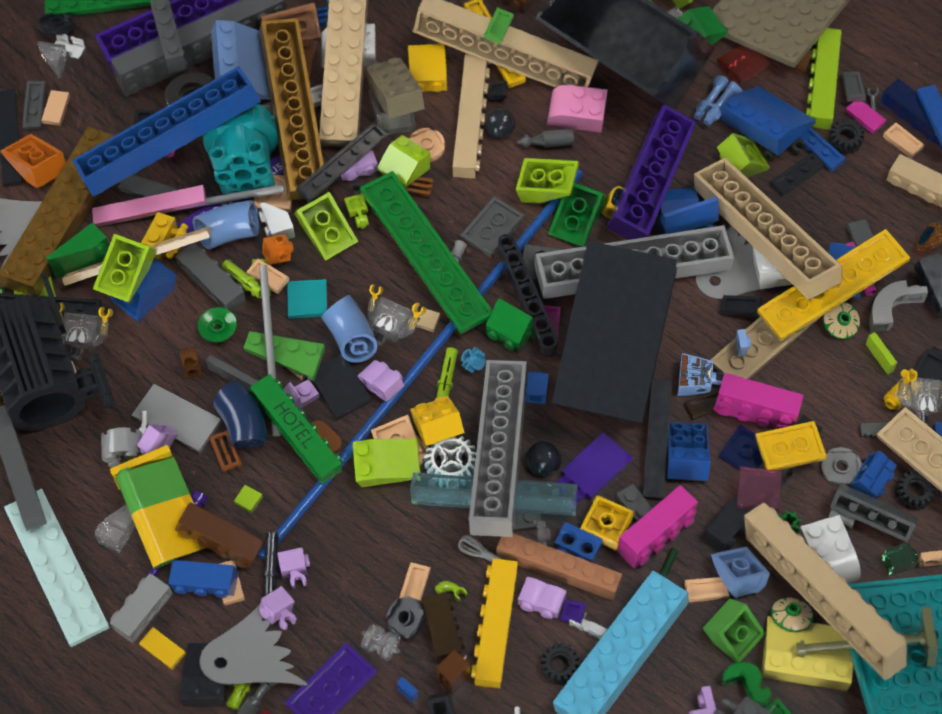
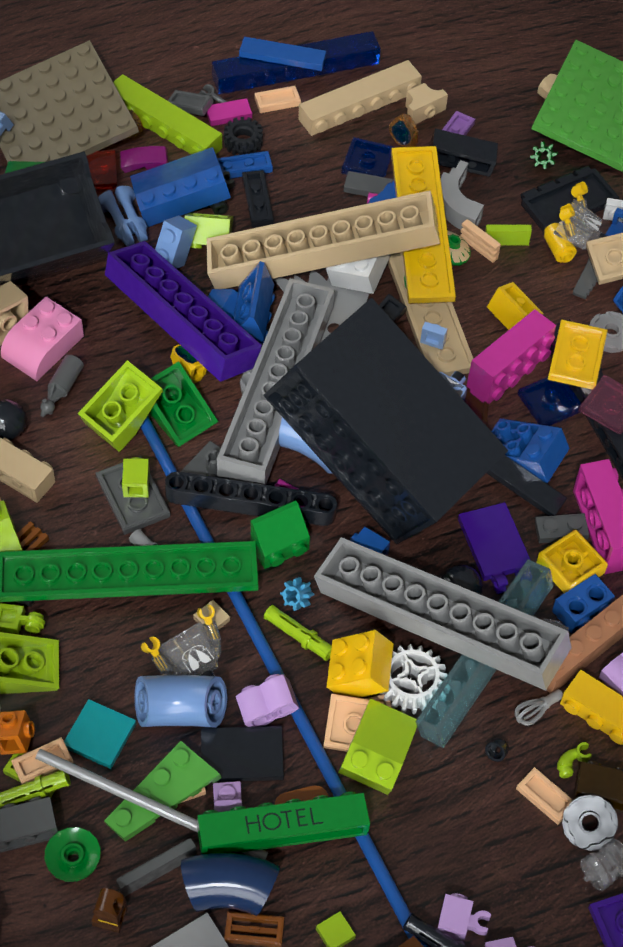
camera: 65 degrees left, 5 degrees down
(431, 538) = (493, 745): none -> black hinge
(500, 219) = (135, 477): none -> lime brick
(707, 140) = (175, 240): none -> medium blue brick
(779, 84) = (143, 157): none -> magenta slope
(809, 383) = (511, 305): none -> yellow brick
(861, 338) = (480, 240): none -> light nougat tile
(893, 221) = (367, 158): none -> clear blue tile

